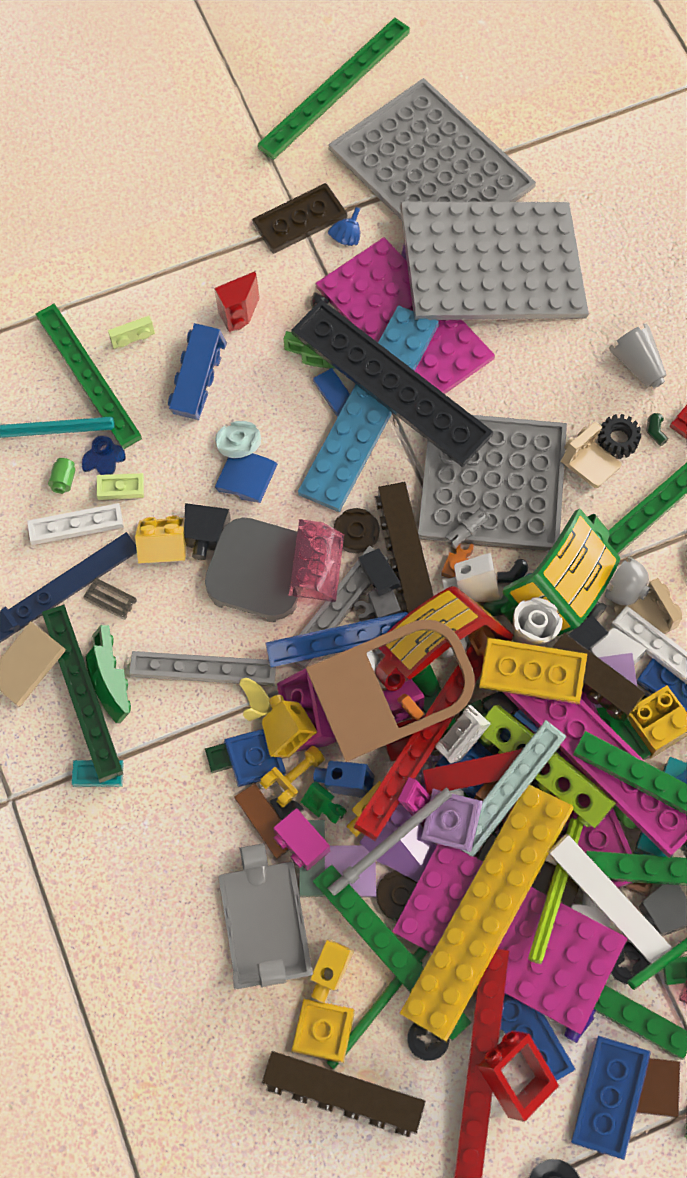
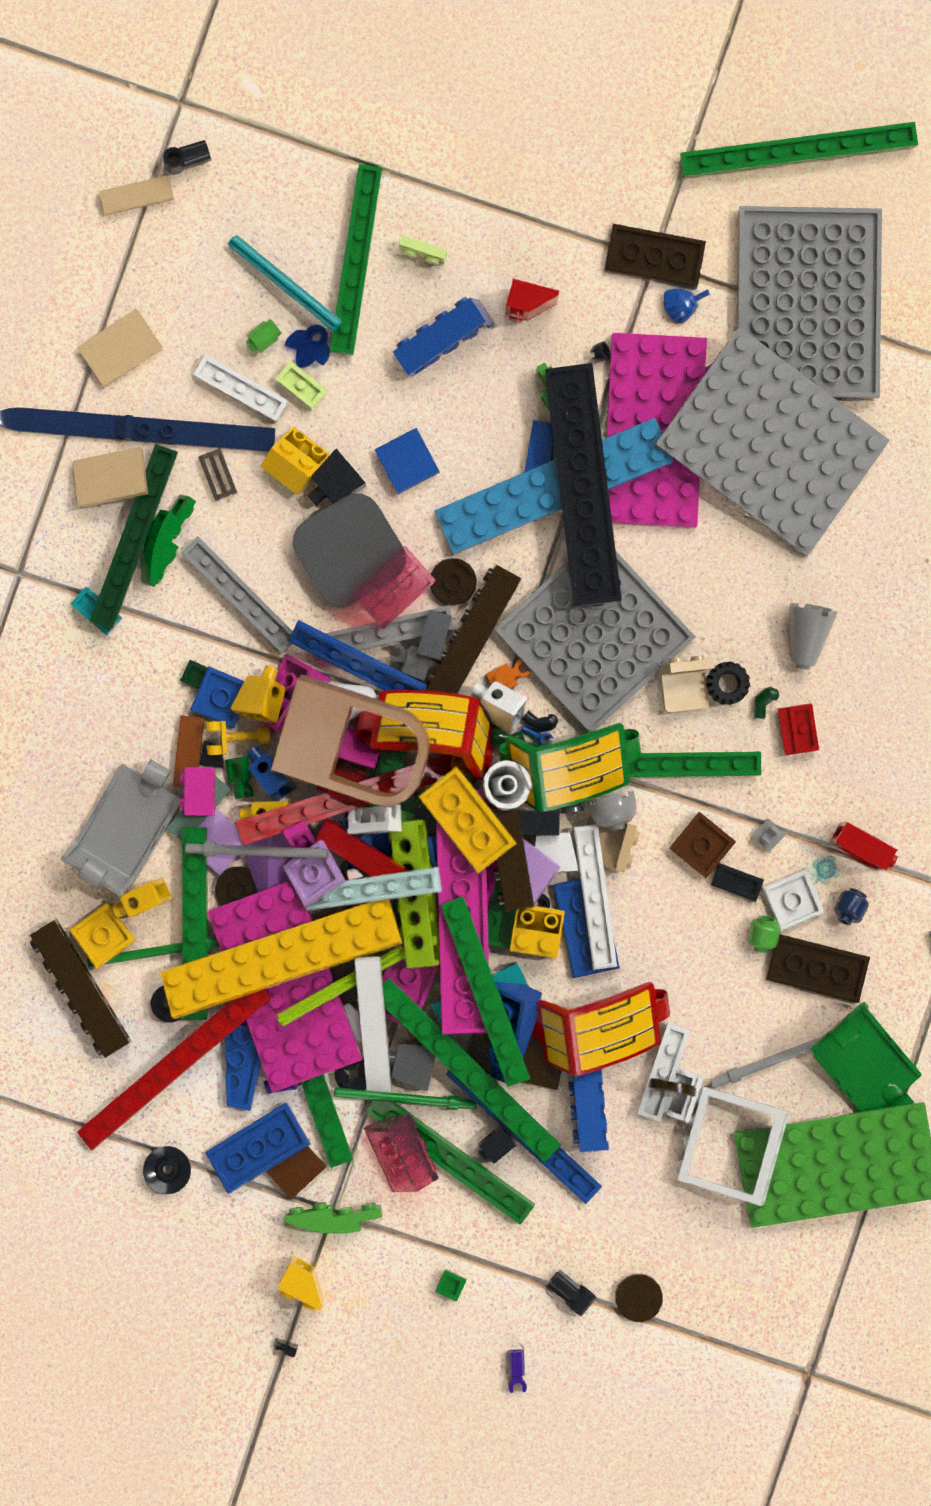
camera: 30 degrees right, 20 degrees up
(238, 439) = (426, 424): light aqua tile -> none
(257, 698) = (259, 658): light yellow helmet -> none
(410, 706) = (354, 768): orange tile -> none
(467, 527) = (534, 658): light grey pin -> none
(535, 1092) = (204, 1101): red window -> none

